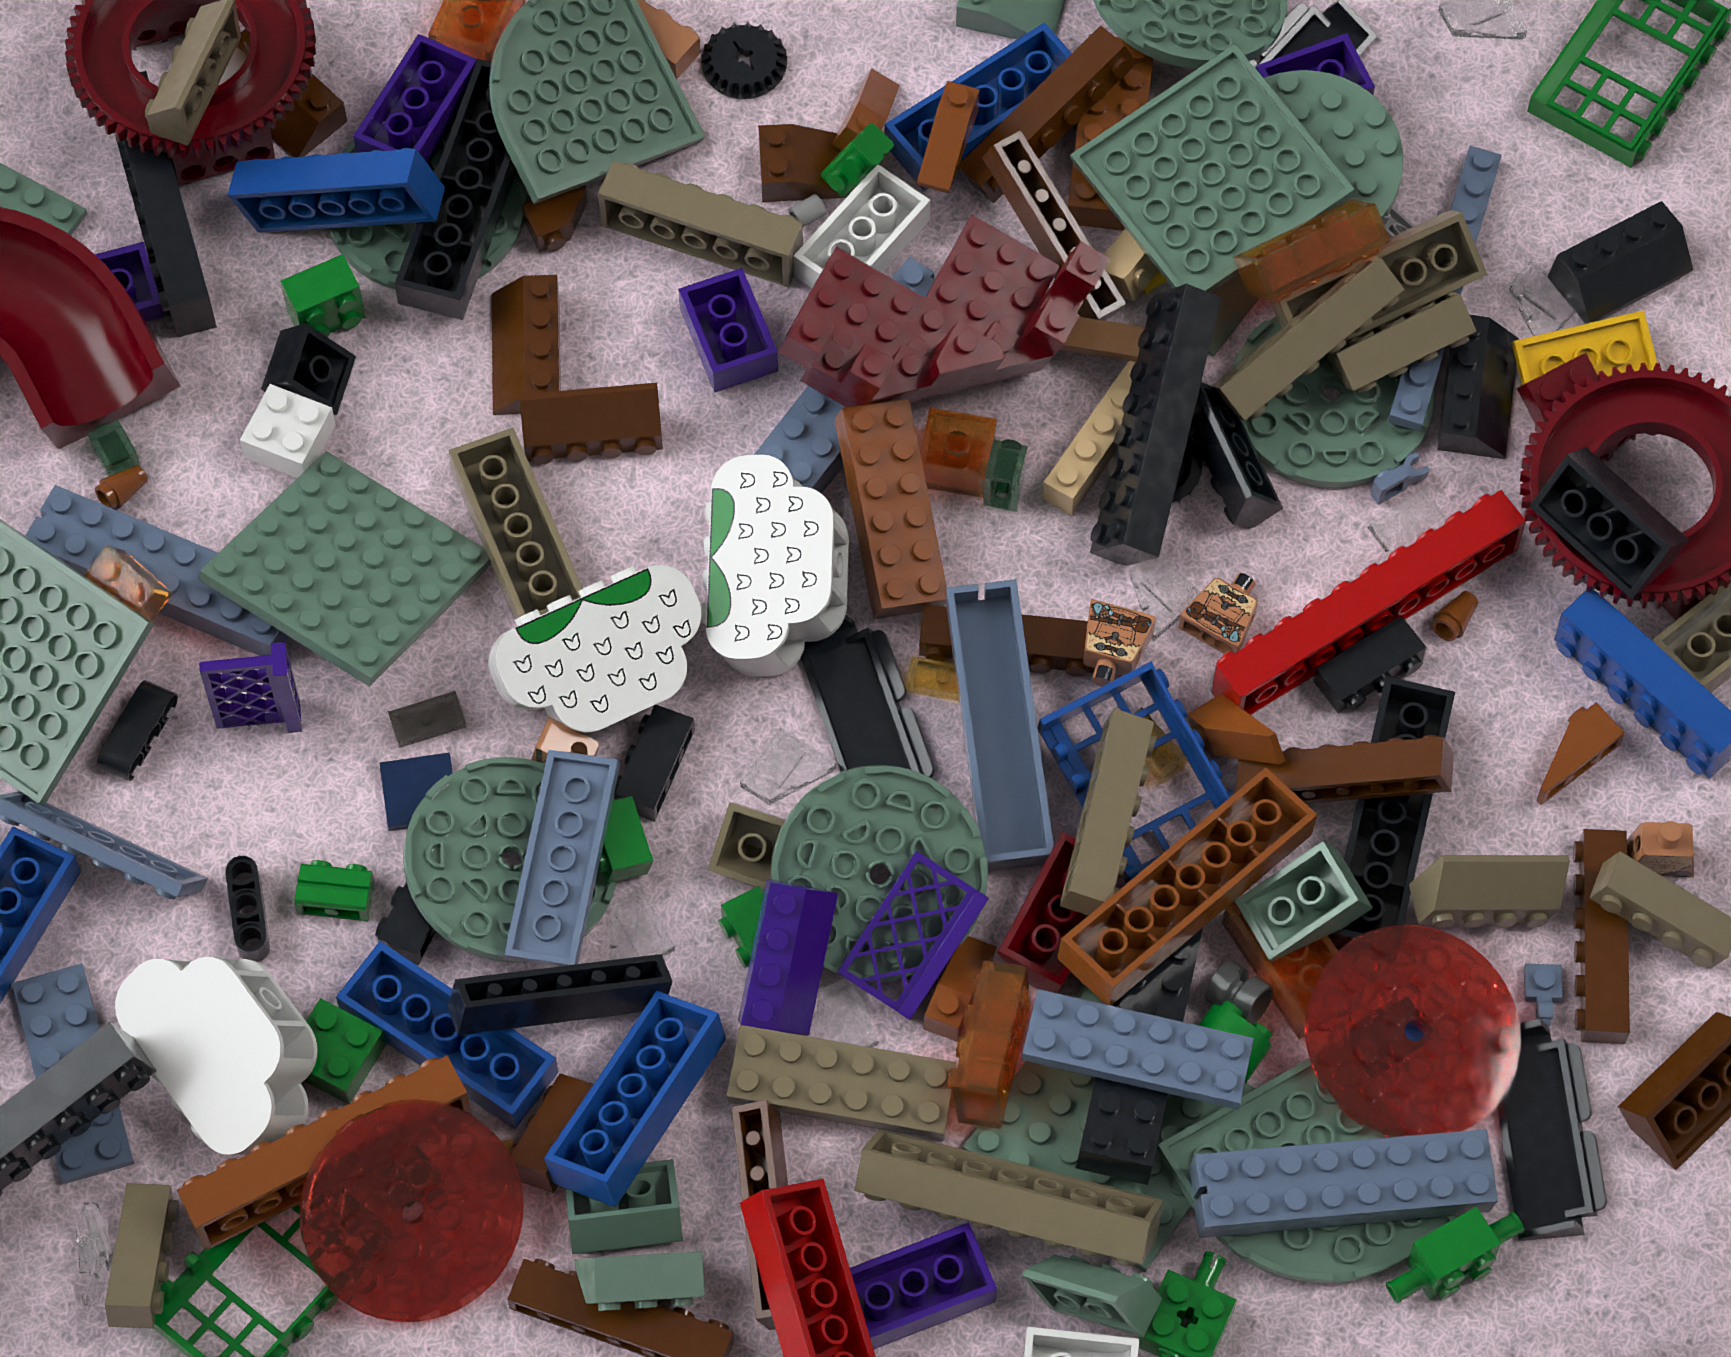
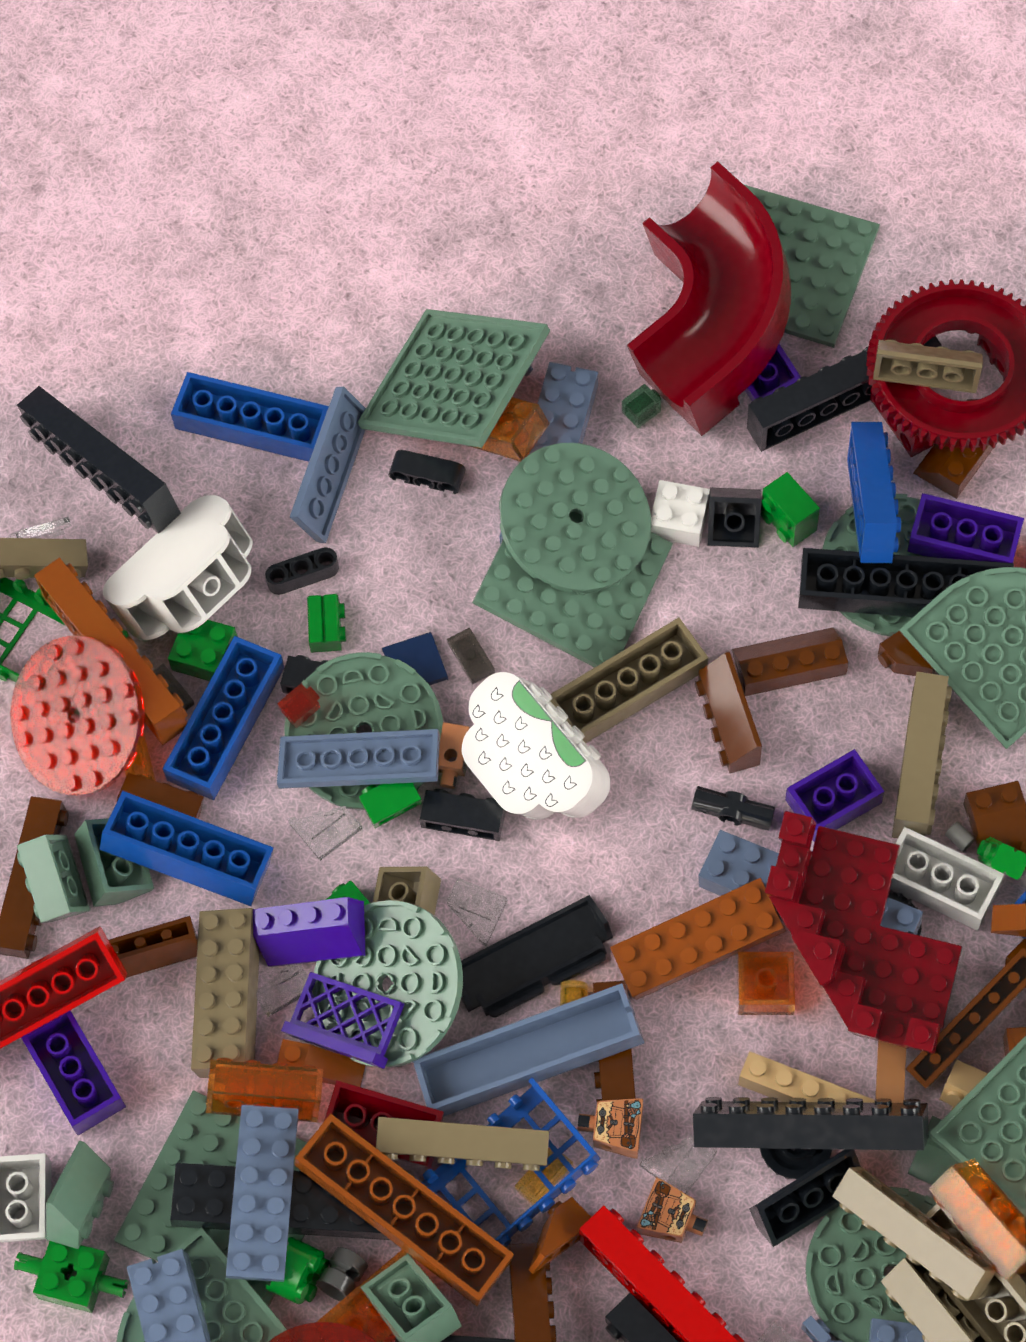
camera: 85 degrees right, 0 degrees up
(55, 1020) = (203, 474): sand blue plate -> none
(120, 487) = (614, 418): dark orange cone -> none
(227, 549) = (552, 546): none -> sand green plate
(278, 688) = (455, 534): dark purple fence -> none
(467, 920) = (299, 704): none -> clear red brick
(557, 994) = (255, 779): black brick -> none
(714, 448) = (733, 807): none -> black piece
(771, 566) = (627, 858): white brick -> none
(1005, 474) = (752, 1021): clear green brick -> none
(1009, 1196) = (143, 1125): dark tan brick -> none

